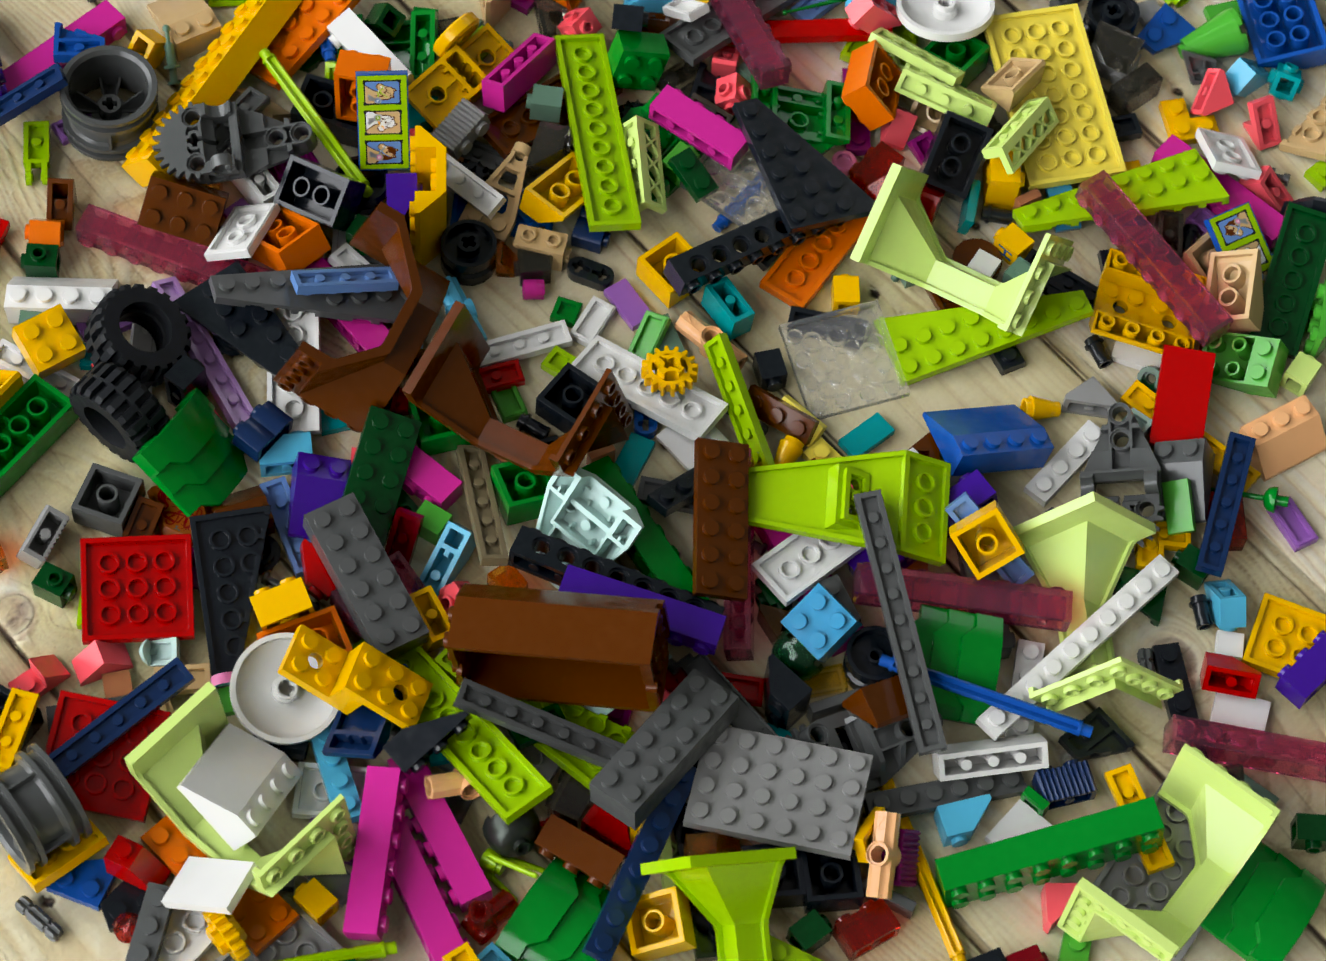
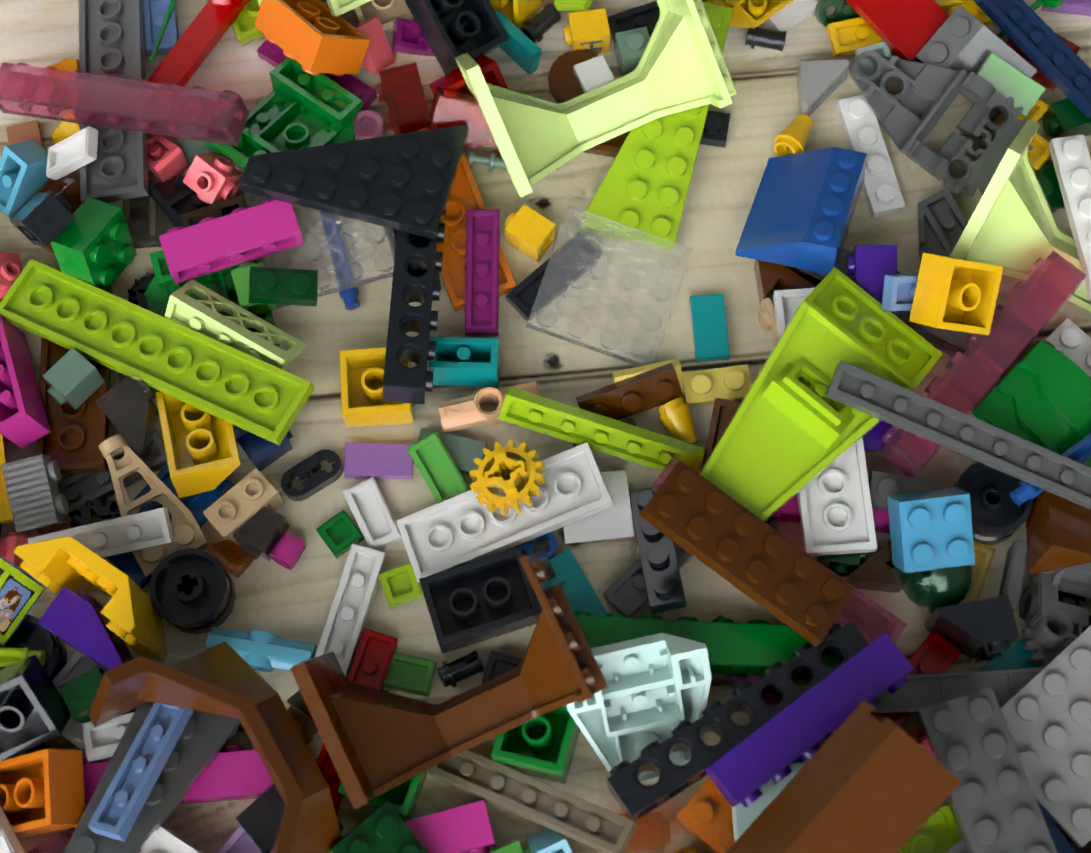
camera: 45 degrees left, 10 degrees up
(770, 370) = (567, 370): black brick -> none
(795, 282) = (482, 272): none -> magenta tile

